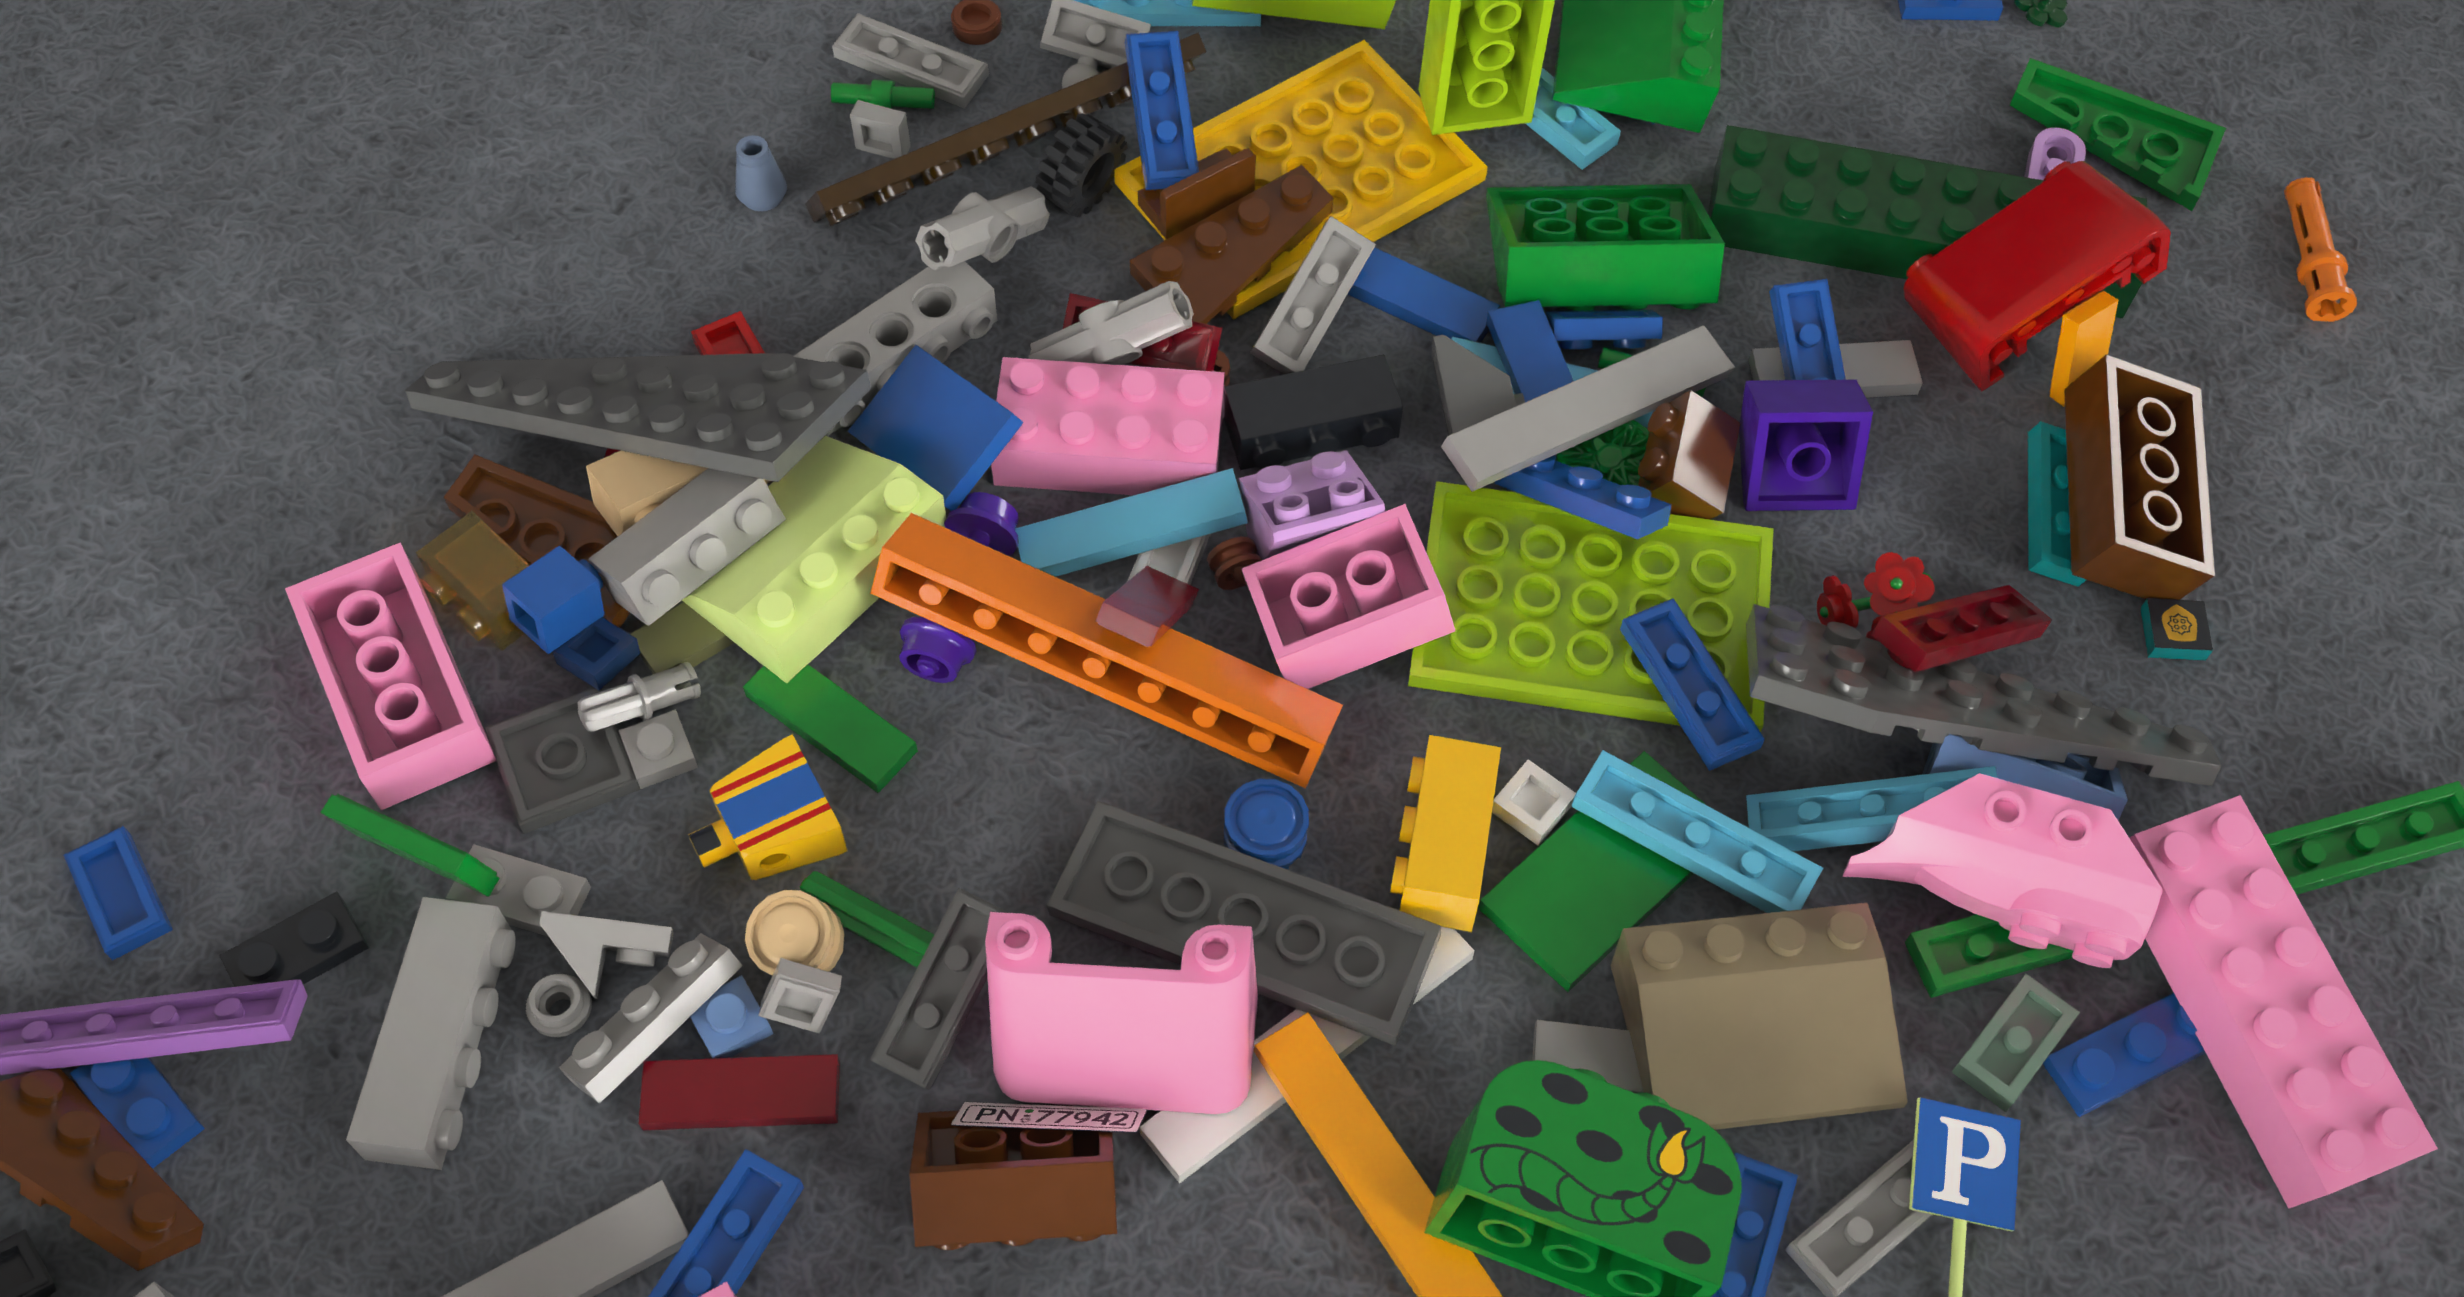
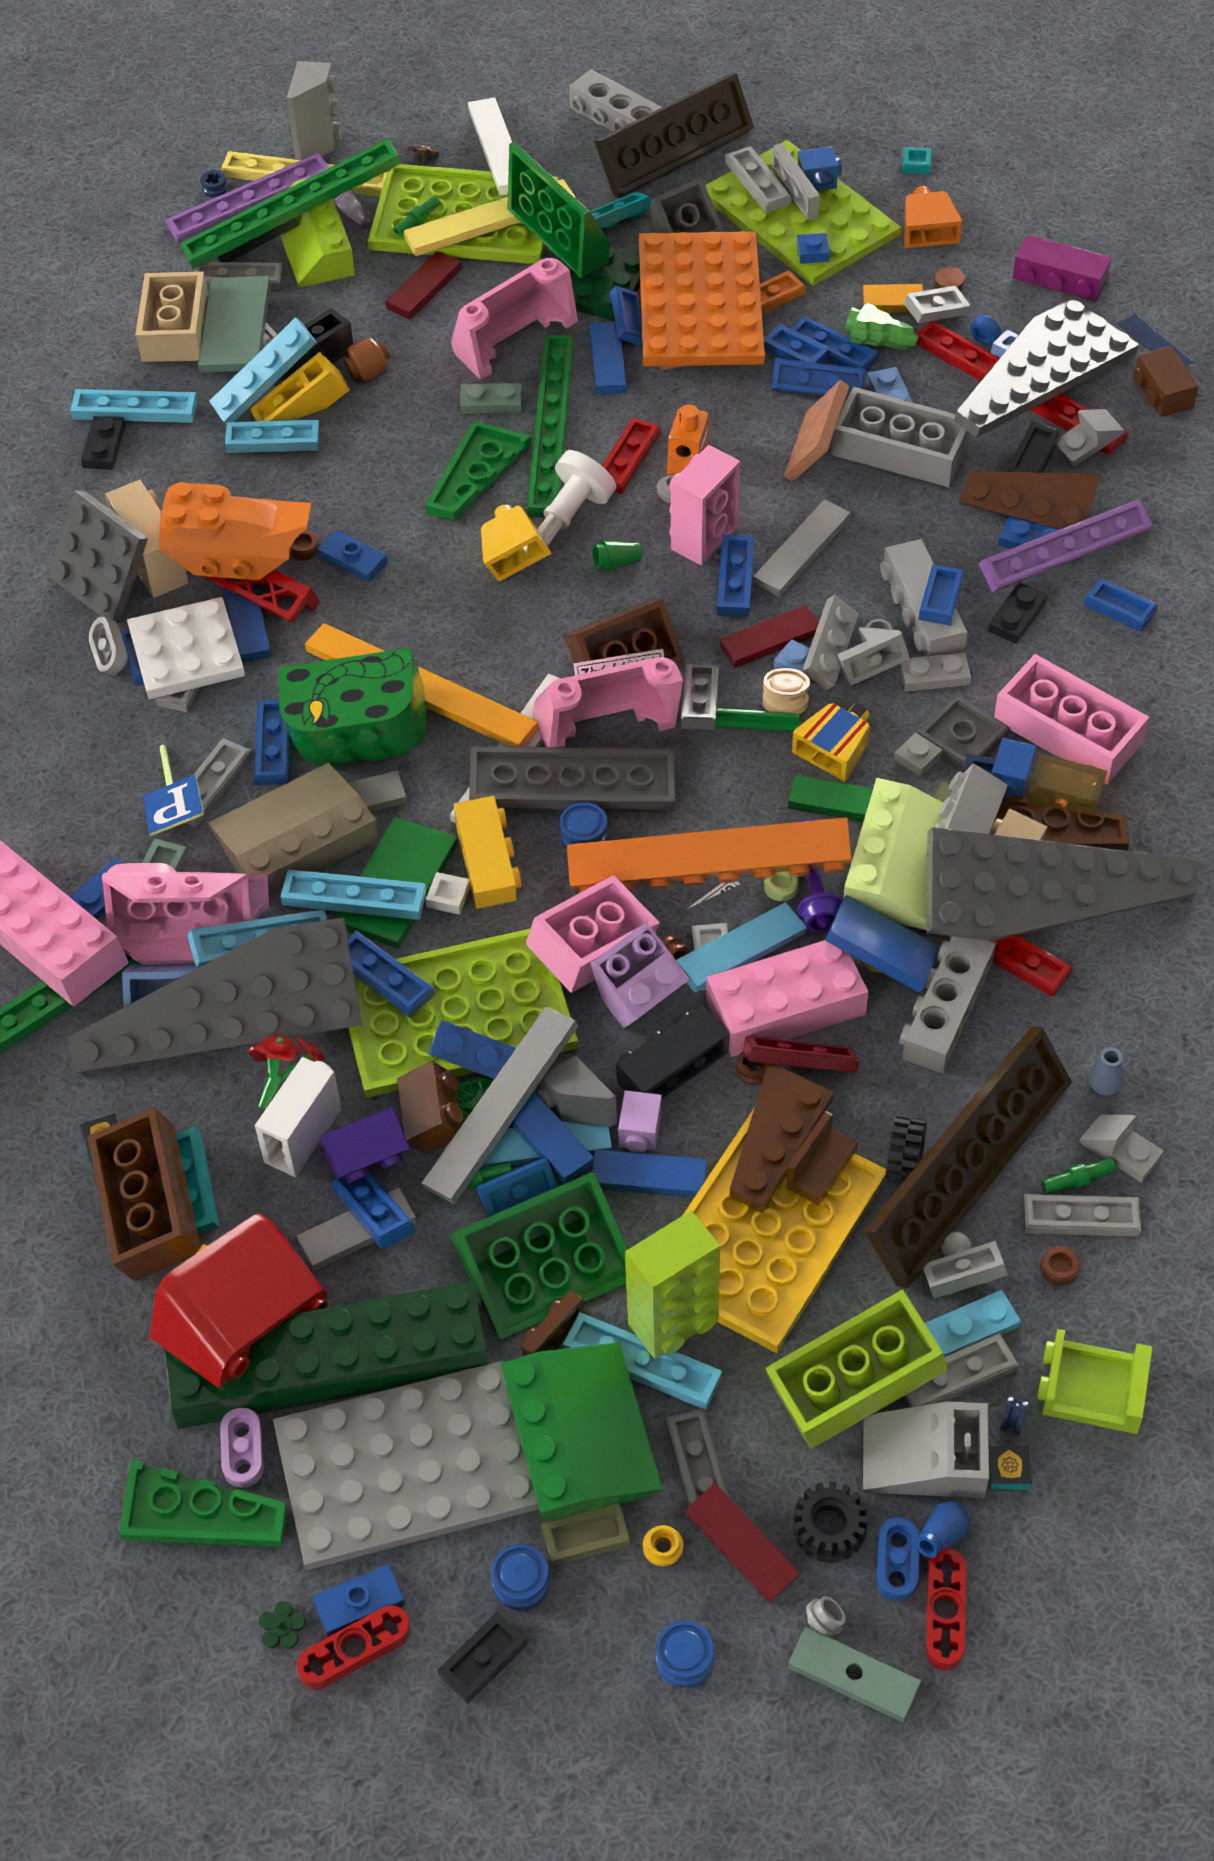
camera: 160 degrees right, 5 degrees down
(410, 982) = (941, 595): none -> blue tile
(411, 844) = (989, 650): green tile -> none
(638, 697) = (941, 763): light grey axle -> none
(800, 995) = (759, 668): light grey tile -> none
(806, 109) = (1115, 1138): none -> light grey slope
(880, 130) = (1057, 1139): light grey tile -> none
(982, 228) = (936, 1071): light grey piece -> none
(1119, 328) = (813, 1031): light grey piece -> none
(1146, 606) = (696, 873): tile -> none
(1161, 108) = (867, 1174): blue tile -> none
(1313, 298) = (709, 1126): light grey plate -> none
(1406, 341) = (639, 1121): none -> lavender brick
(1625, 151) = (555, 1326): none -> reddish brown plate
(1861, 87) = (404, 1465): none -> light grey plate
(1886, 500) = (298, 1116): none -> white brick
(1960, 628) = (233, 1048): dark red plate -> none
(2321, 266) = (33, 1444): orange pin -> none

